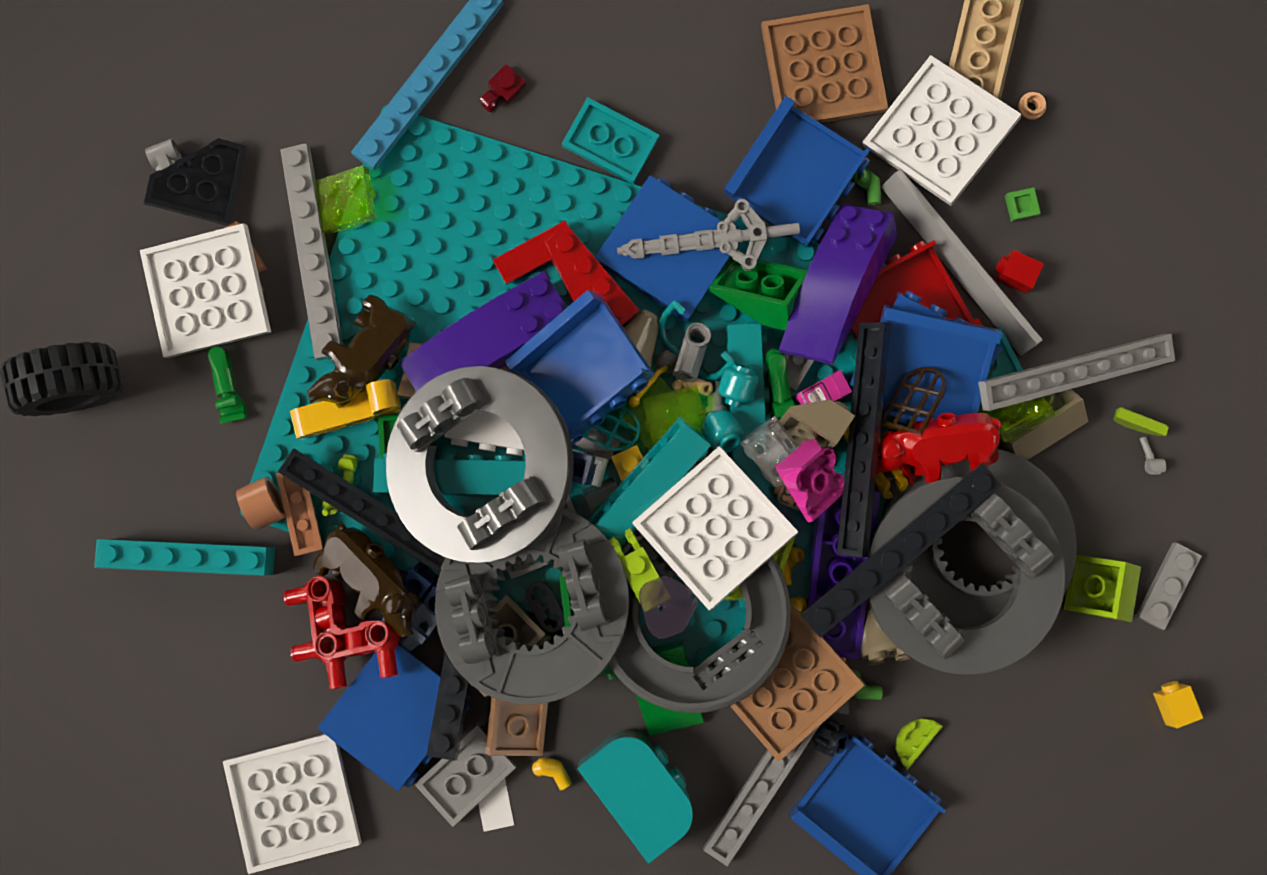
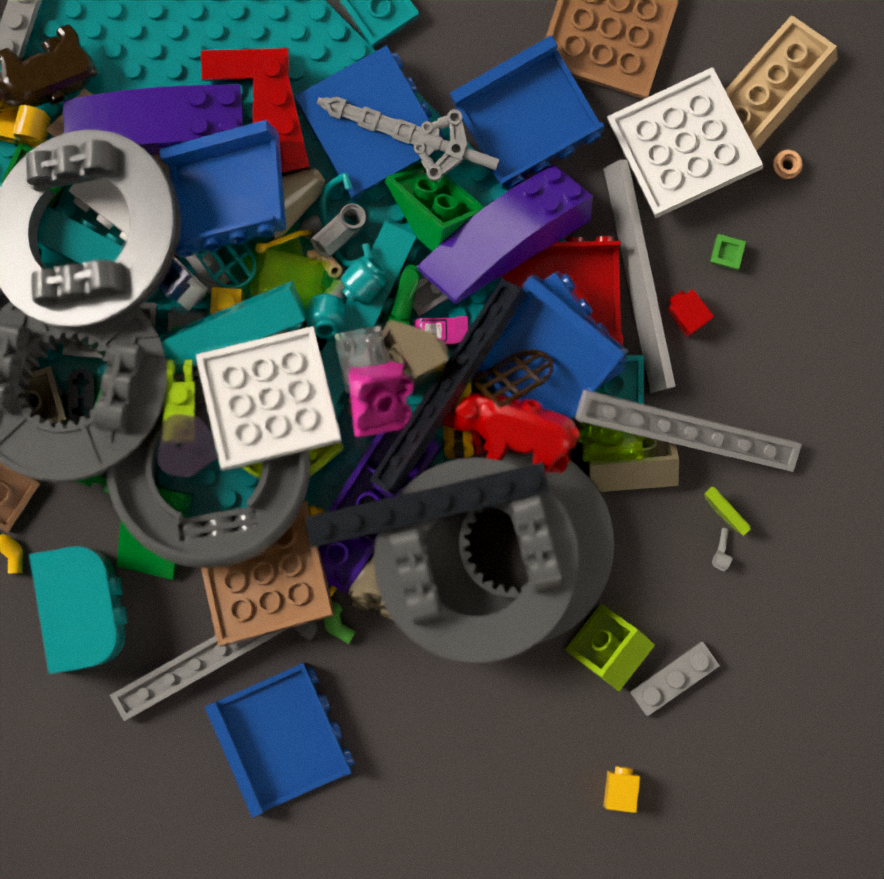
camera: 20 degrees right, 0 degrees up
(796, 555) = (331, 470): yellow arm -> none
(831, 738) = (281, 653): black gear -> none
(871, 184) = (595, 160): bright green arm -> none
(914, 739) = (360, 696): lime tile -> none

